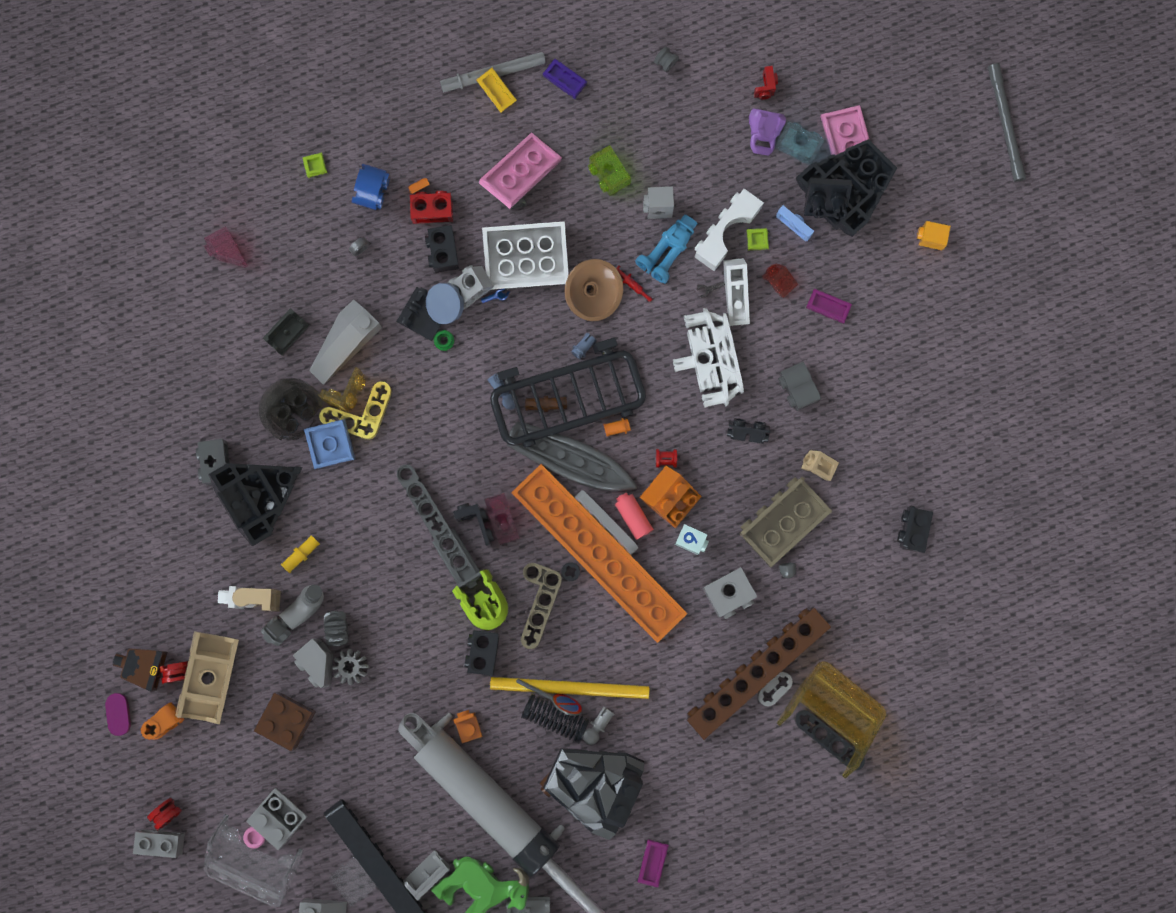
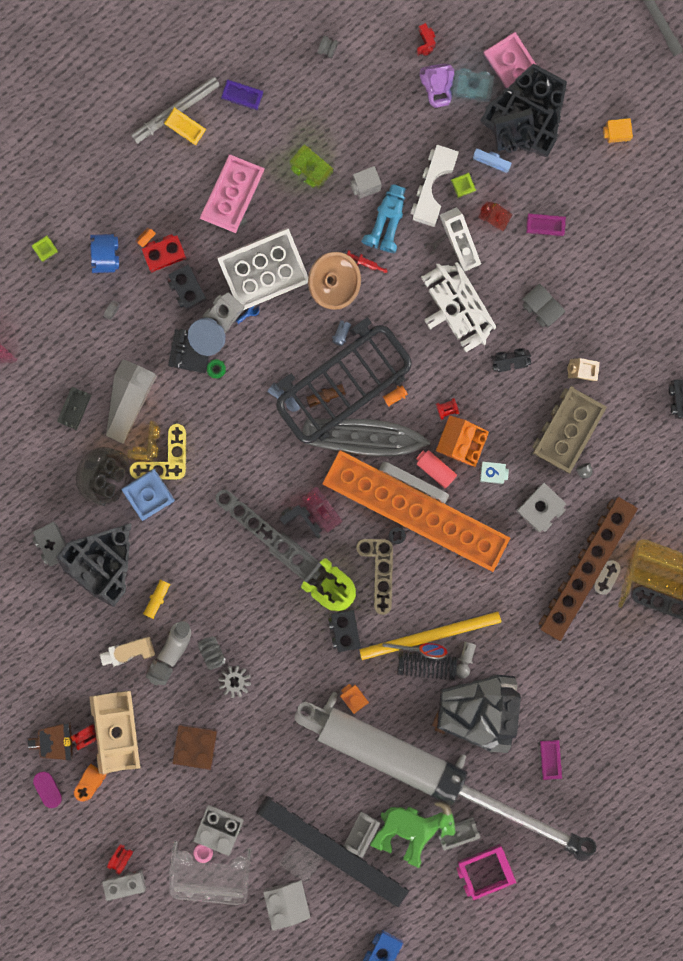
camera: 20 degrees left, 5 degrees up
(316, 661) = (205, 686): light grey slope -> none

